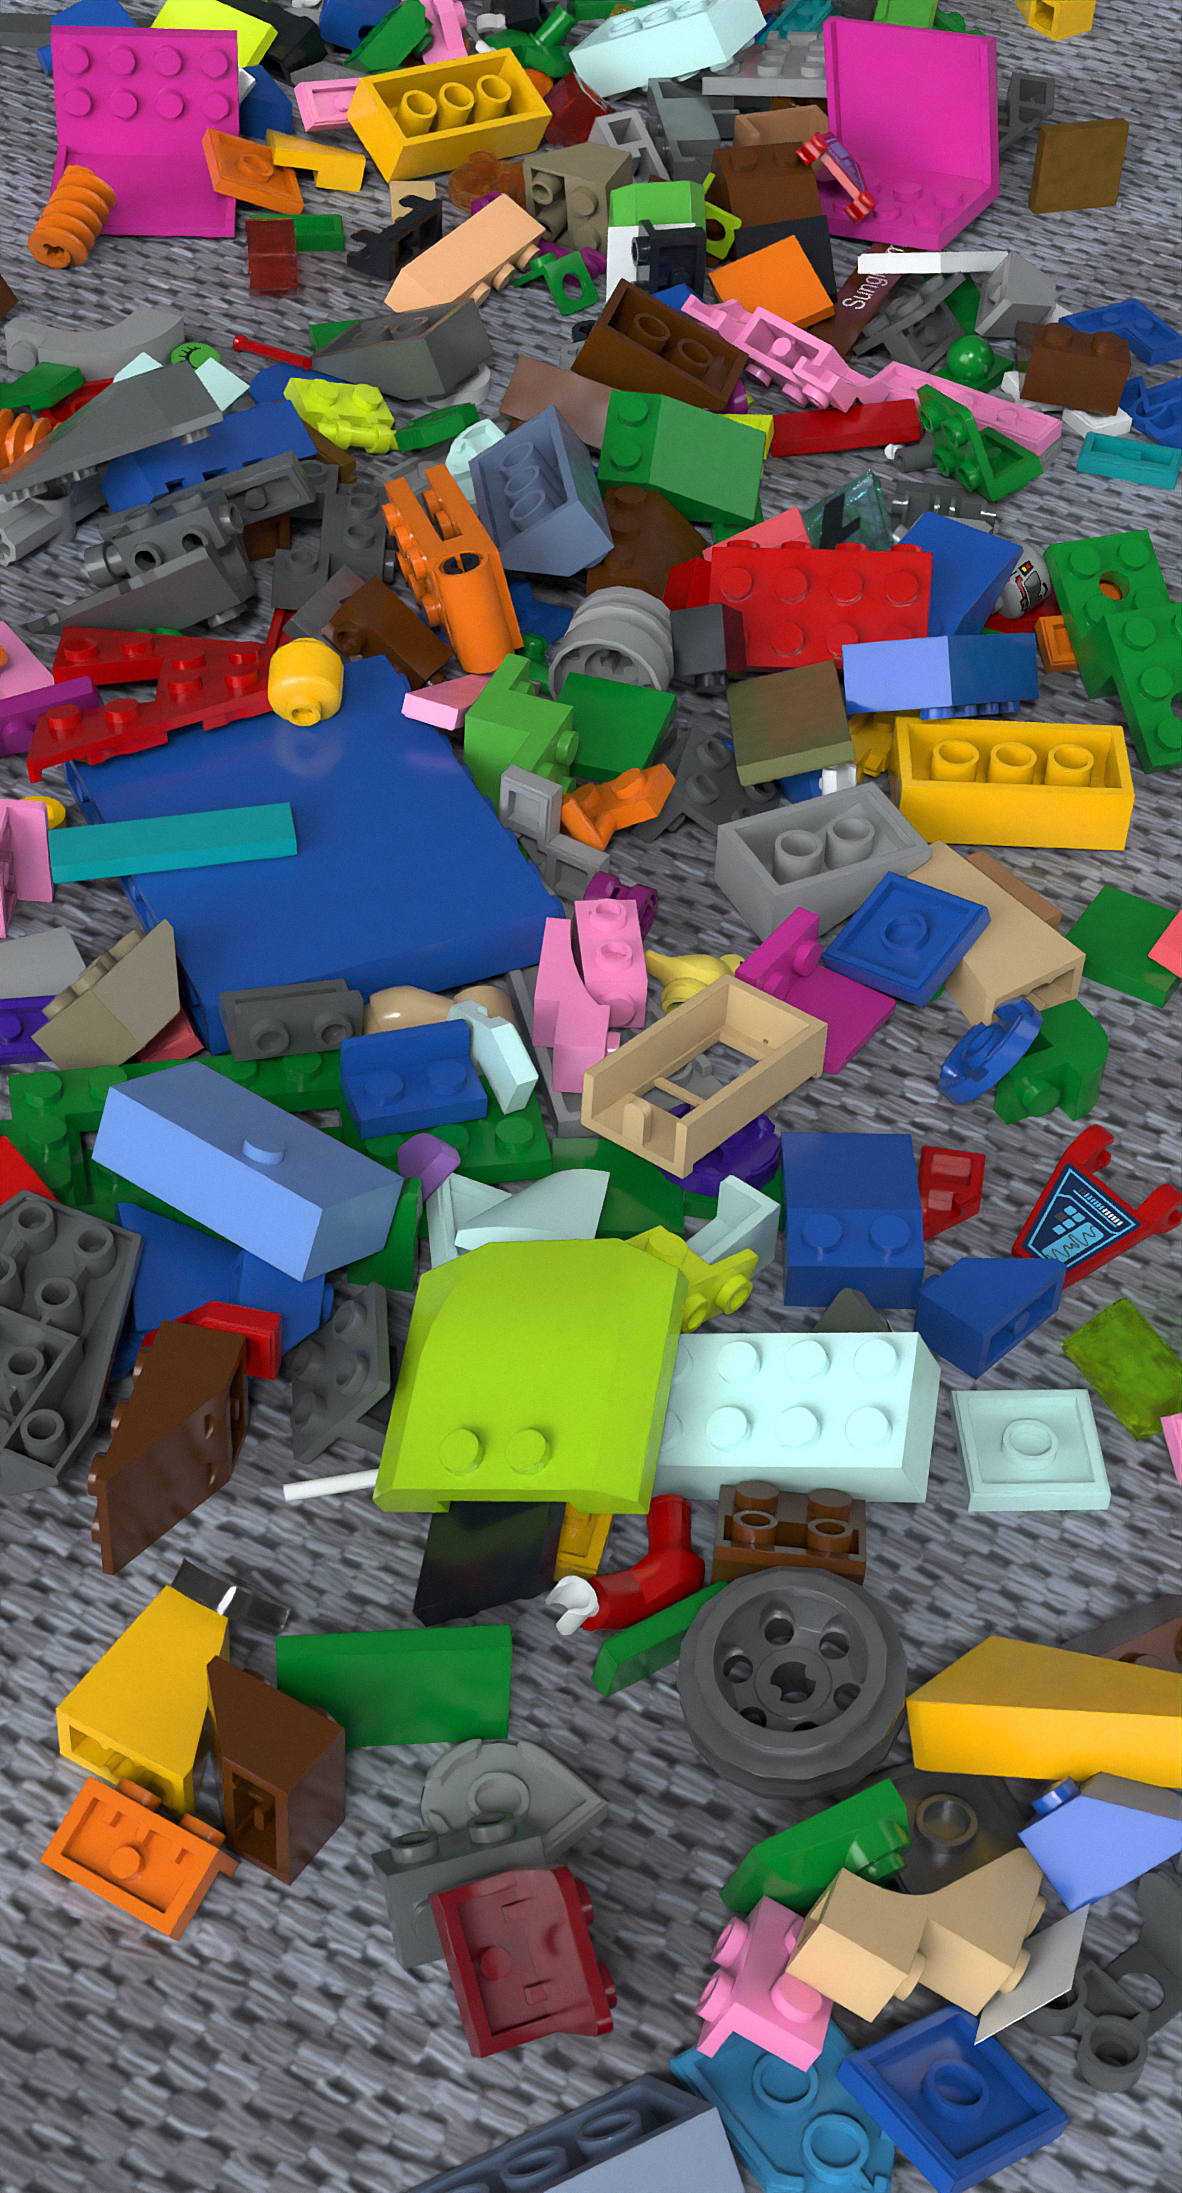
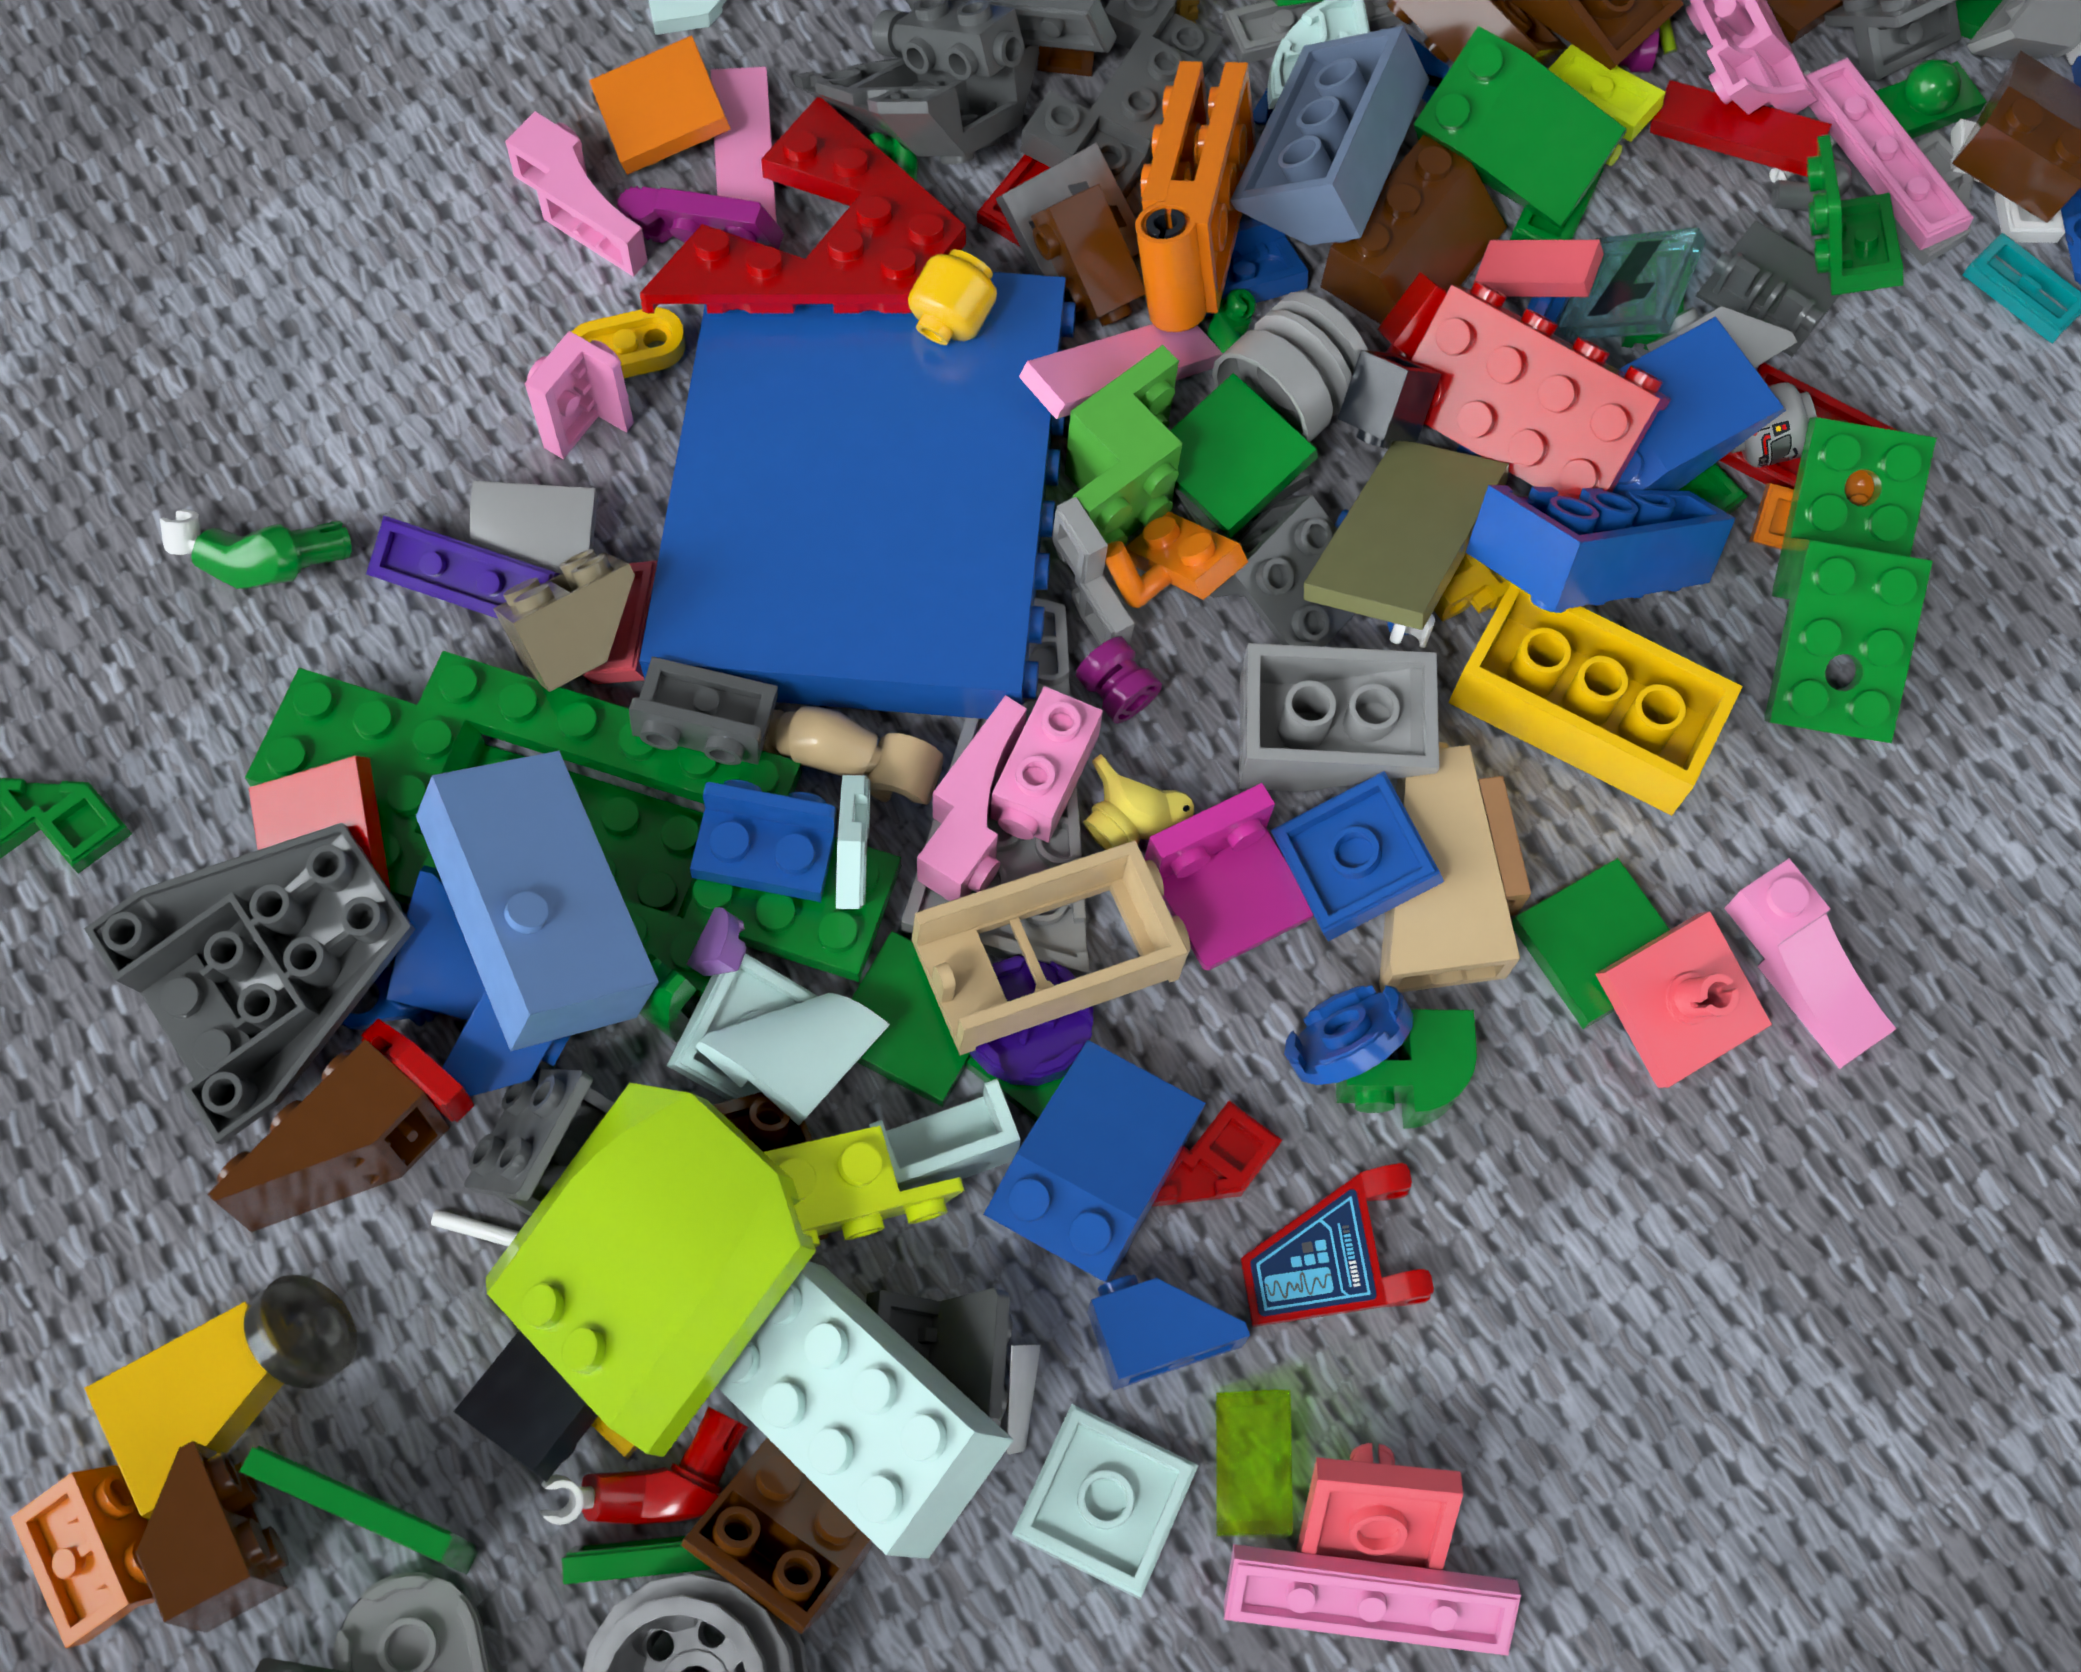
camera: 25 degrees right, 25 degrees up
(172, 843) = (724, 444): teal tile -> none

